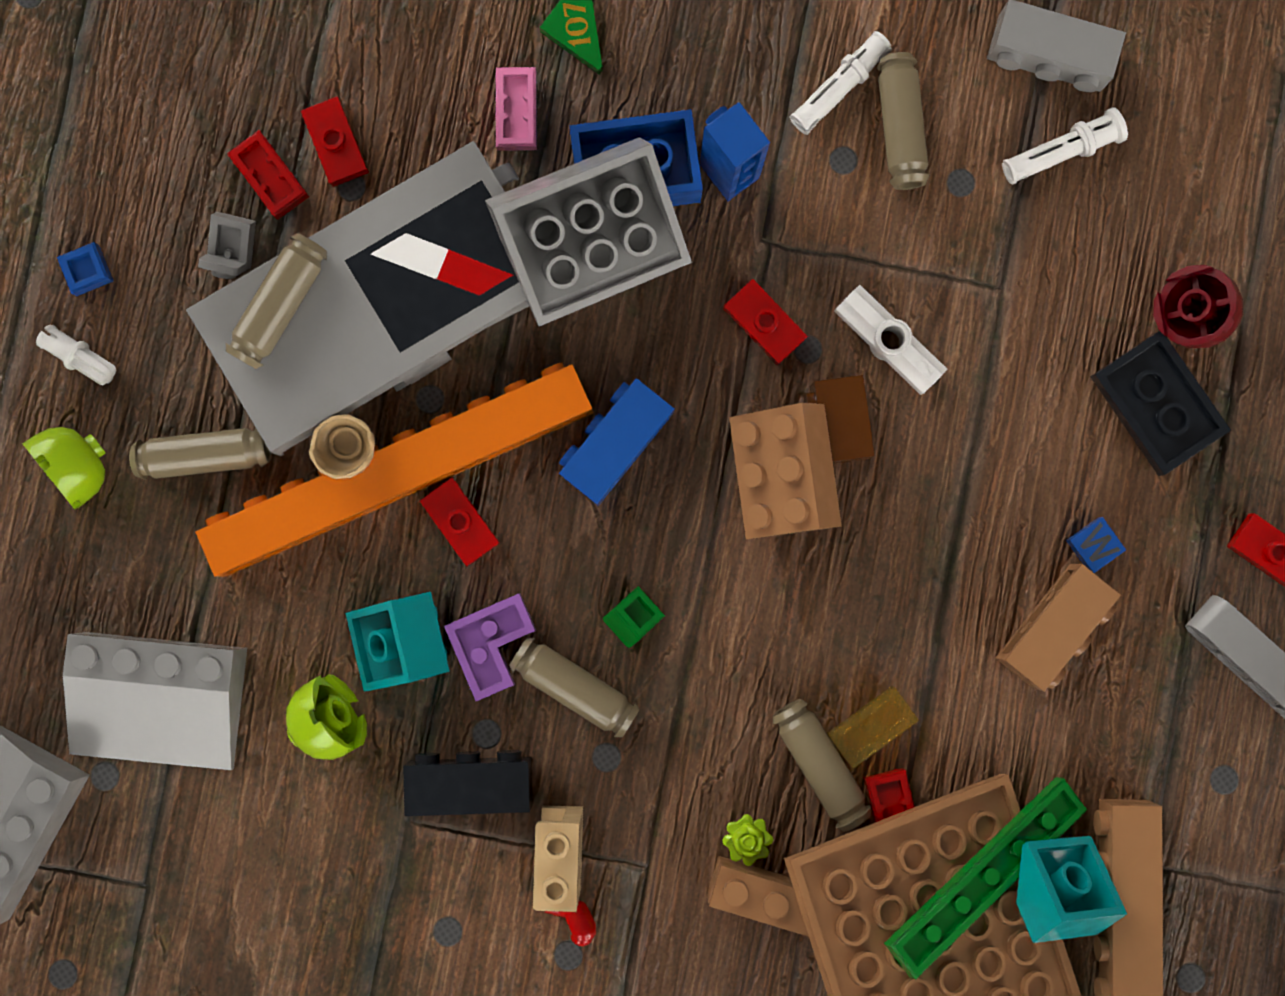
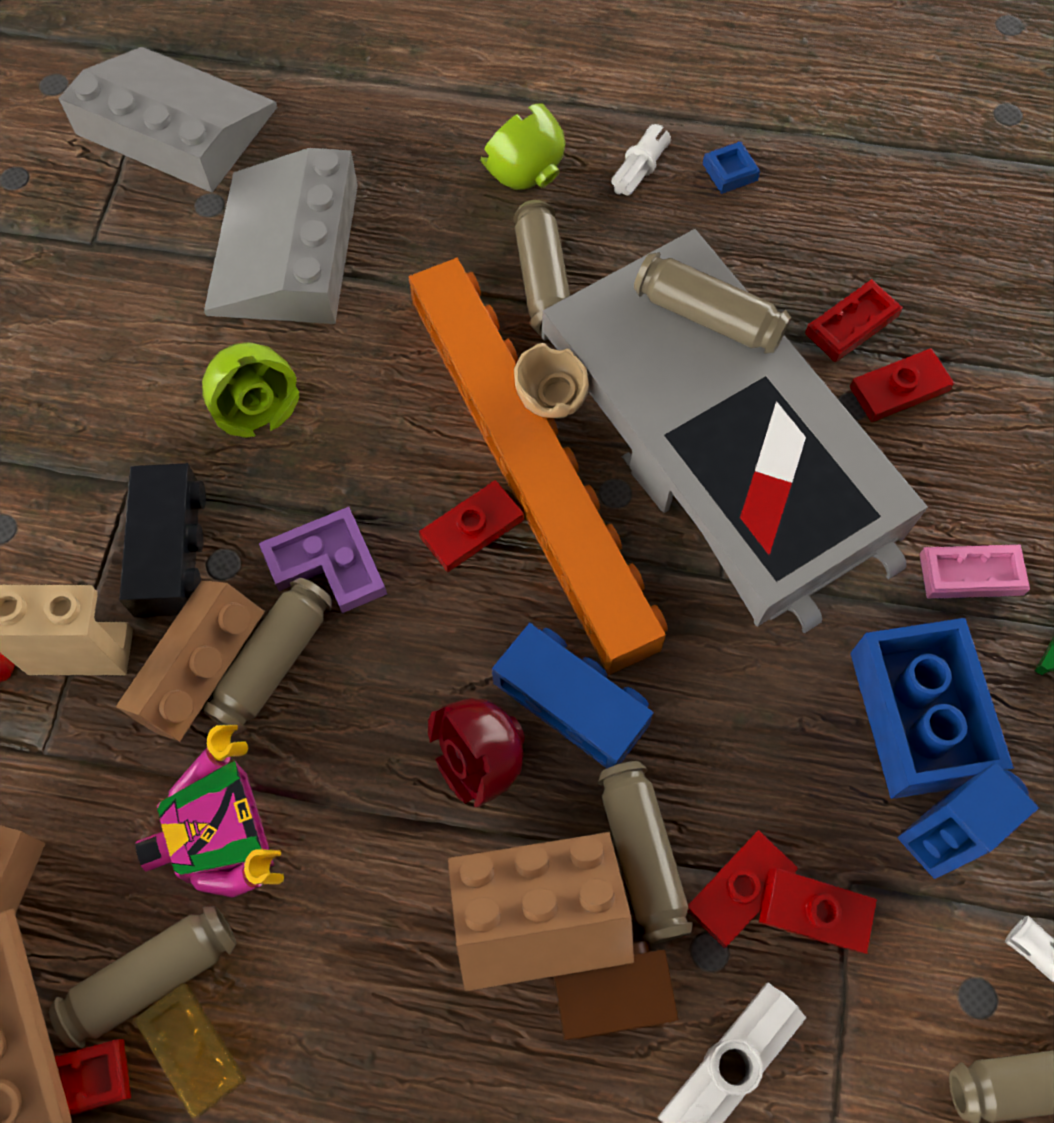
camera: 90 degrees right, 20 degrees down
(229, 245) = (774, 283): light grey bracket -> none
(397, 642) = (332, 464): teal slope -> none
(580, 749) = (190, 659): none -> medium nougat brick
(590, 230) = (834, 637): light grey slope -> none
(633, 617) = (354, 728): green slope -> none
(659, 516) = (478, 748): none -> dark red cylinder
(715, 721) = (212, 825): none -> torso
(739, 392) = (645, 853): none -> dark tan axle
(747, 840) = (55, 874): lime plant -> none
(784, 267) = (818, 910): none -> red plate

